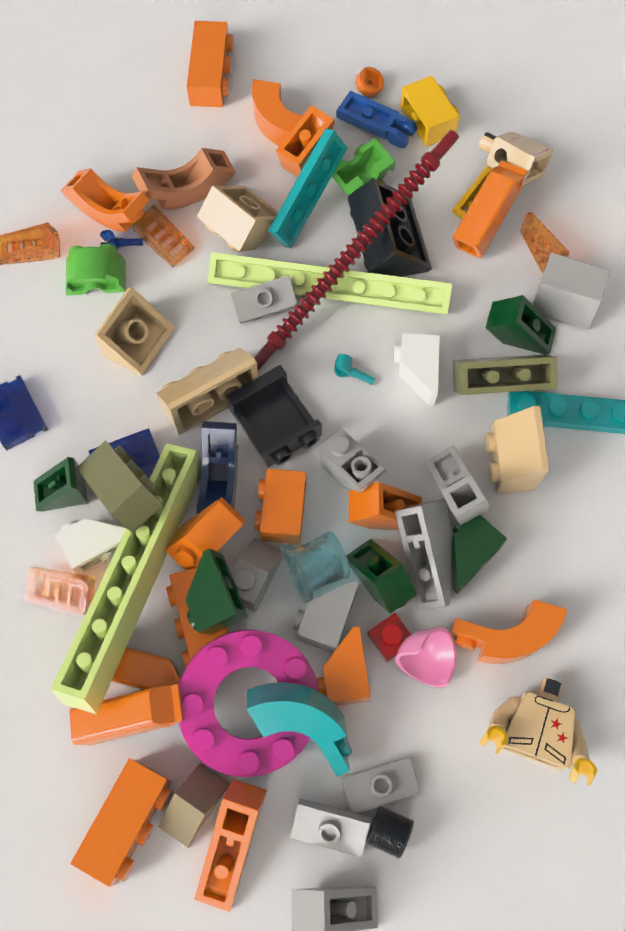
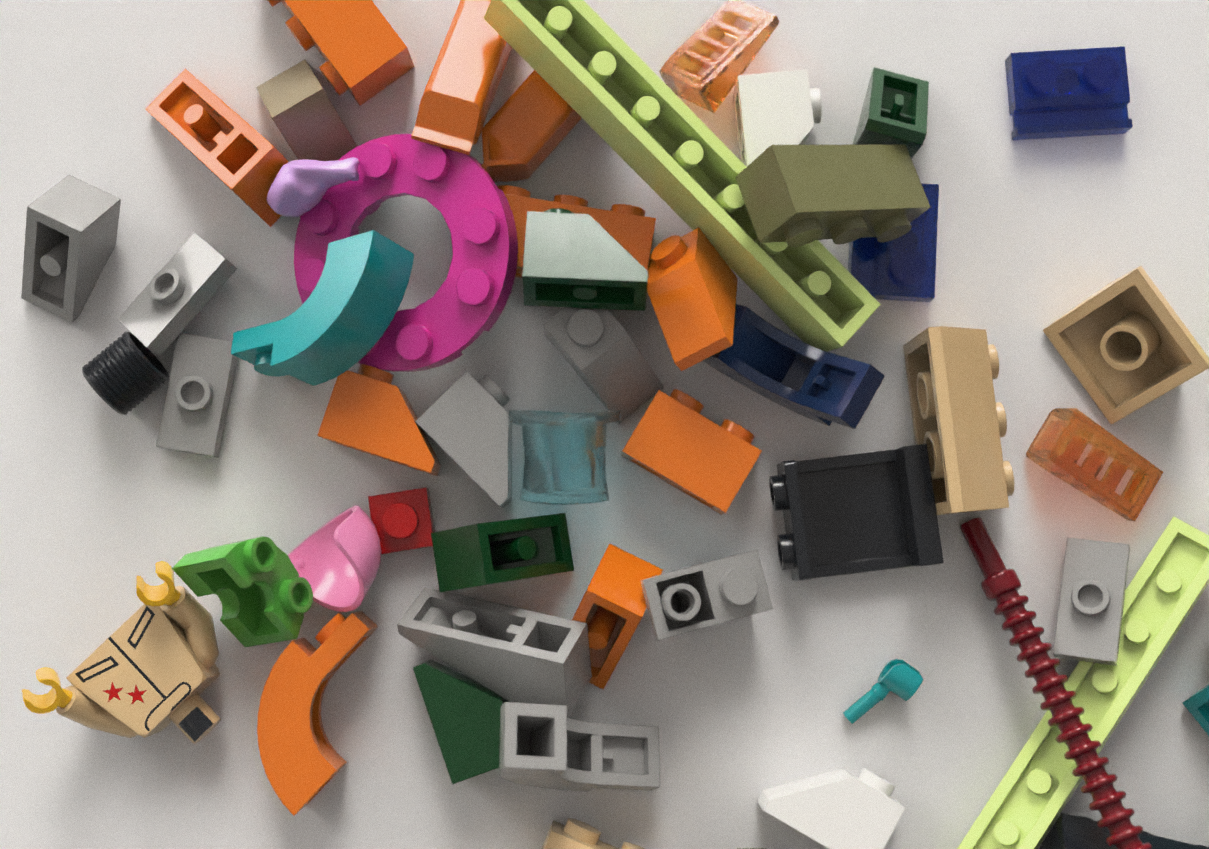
camera: 115 degrees right, 15 degrees up
(196, 344) = (1063, 442): none -> clear orange slope
(233, 774) = (304, 182): none -> lavender animal
(468, 691) = (256, 586): none -> bright green cylinder

